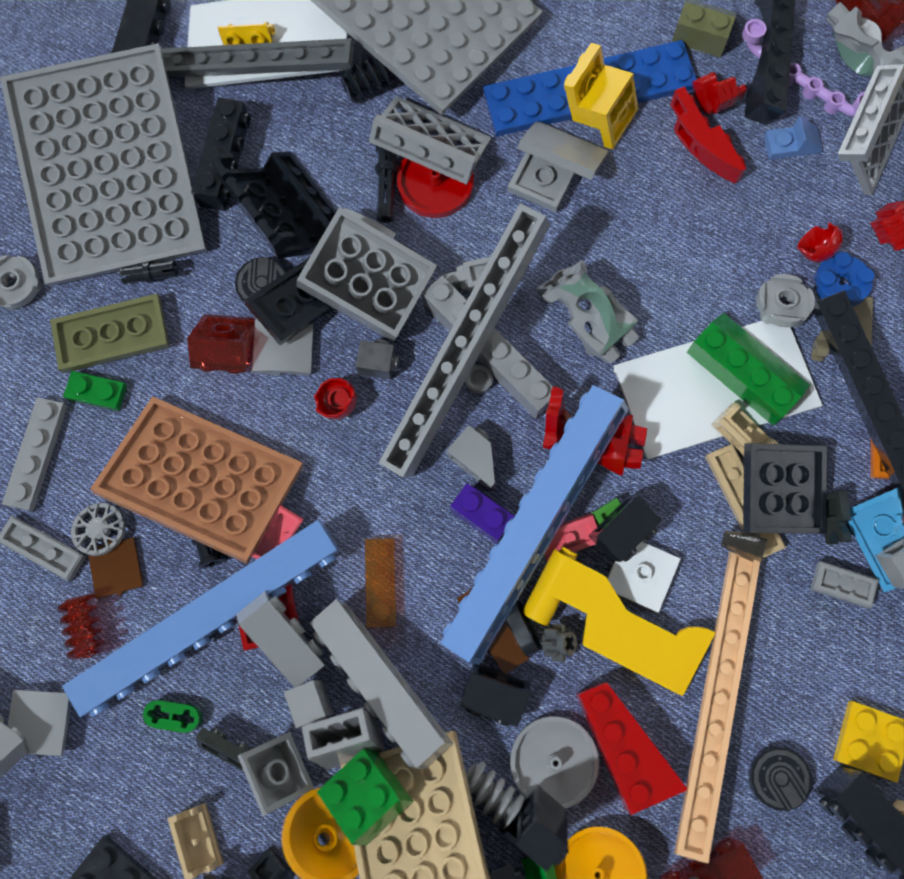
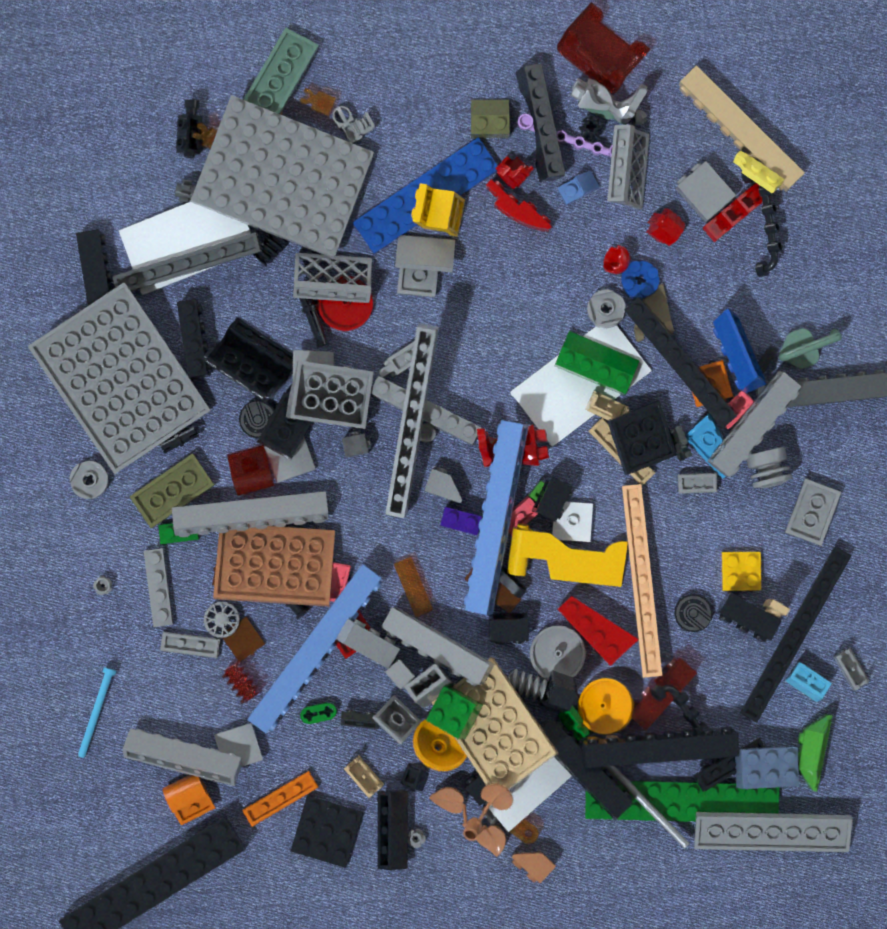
camera: 25 degrees left, 10 degrees up
(64, 825) = (280, 798): none -> orange tile
(195, 396) = (250, 514): none -> light grey brick
(246, 34) = (168, 249): yellow hinge -> none
(335, 399) = (339, 481): red hair -> none
(558, 642) = (535, 582): dark grey gear -> none
(606, 315) = (464, 353): light grey hips -> none
(747, 545) = (628, 482): clear smoke cone -> none
(835, 73) = (594, 124): none -> black gear

